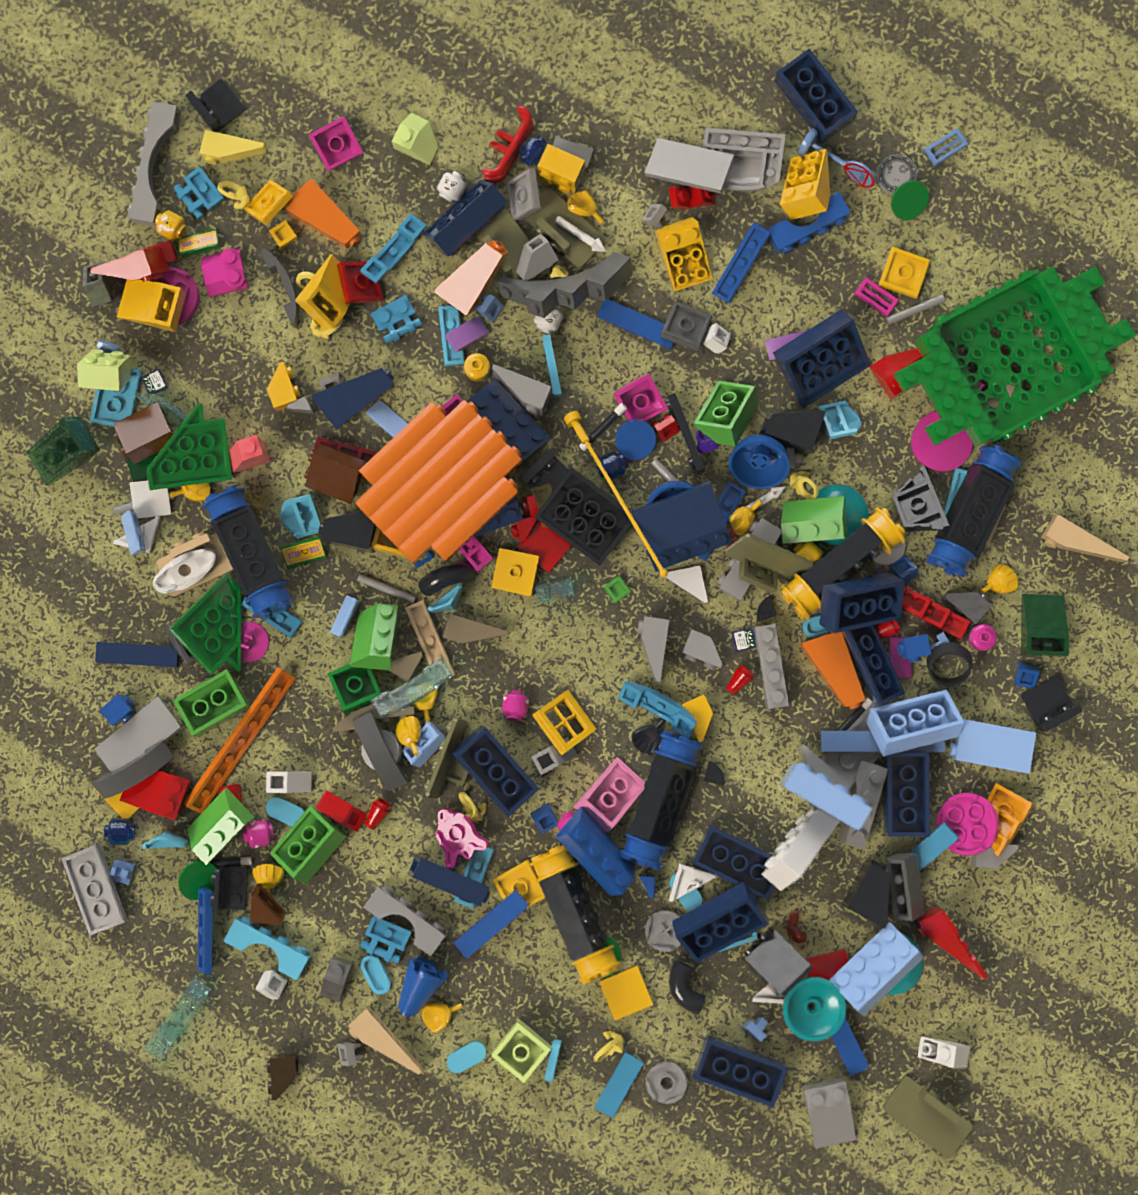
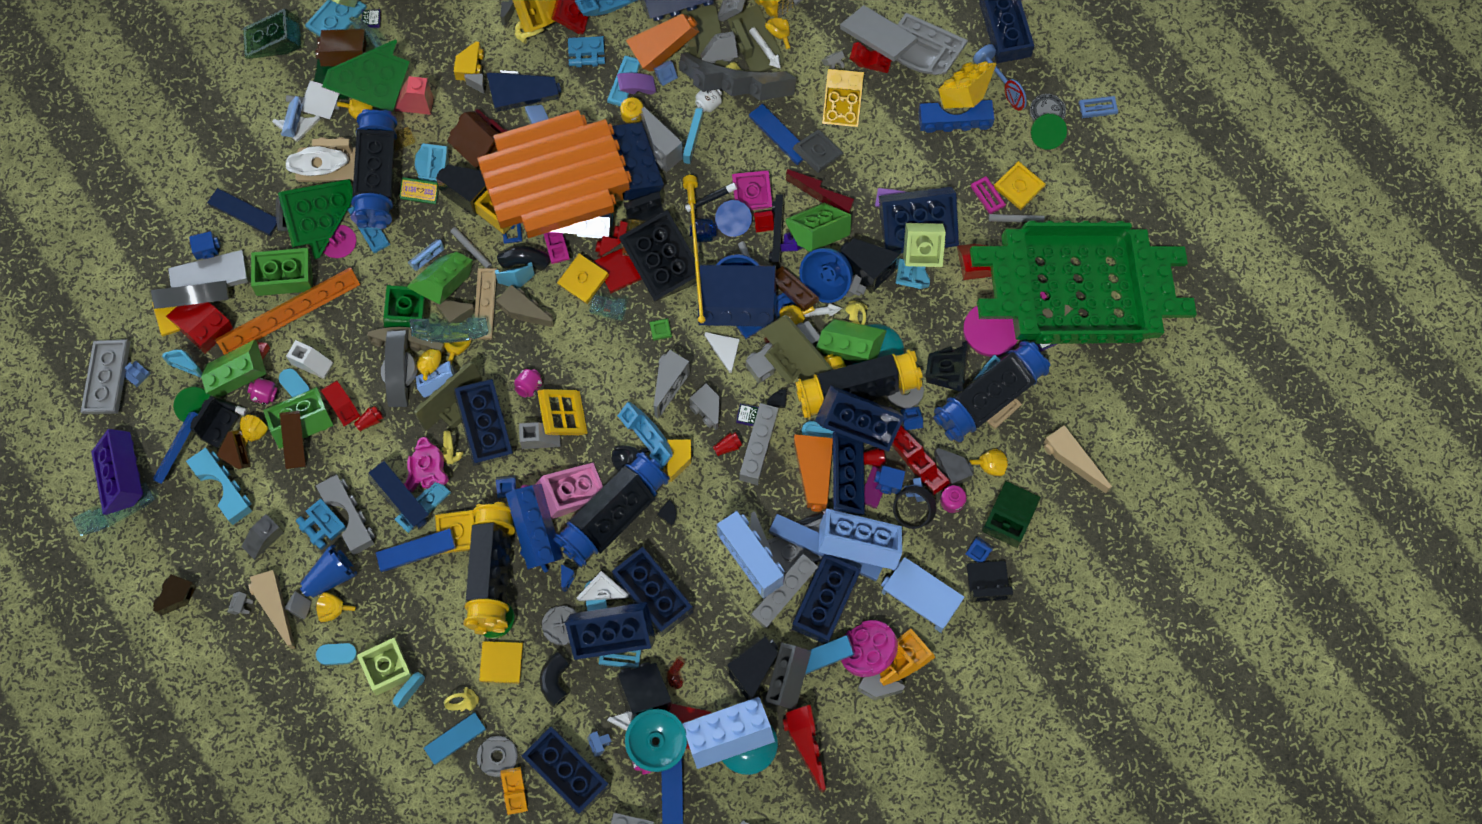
camera: 20 degrees right, 15 degrees down
(119, 831) = (152, 339): clear blue head -> none
(161, 982) = (116, 471): none -> dark purple slope
(271, 984) = (205, 519): white slope -> none
(317, 873) = (292, 439): none -> reddish brown tile
(375, 974) = (297, 550): medium azure tile -> none
(407, 1029) = (298, 605): none -> light grey slope
(698, 1107) = (514, 790): none -> light orange slope
(716, 338) = (839, 171): white slope -> none
(732, 488) = (795, 289): none -> reddish brown tile
(733, 374) = (813, 188): none -> dark red slope
(741, 262) = (886, 121): blue tile -> none
(799, 848) = (709, 595): white brick -> none
(841, 385) = (924, 244): none -> yellowish green brick

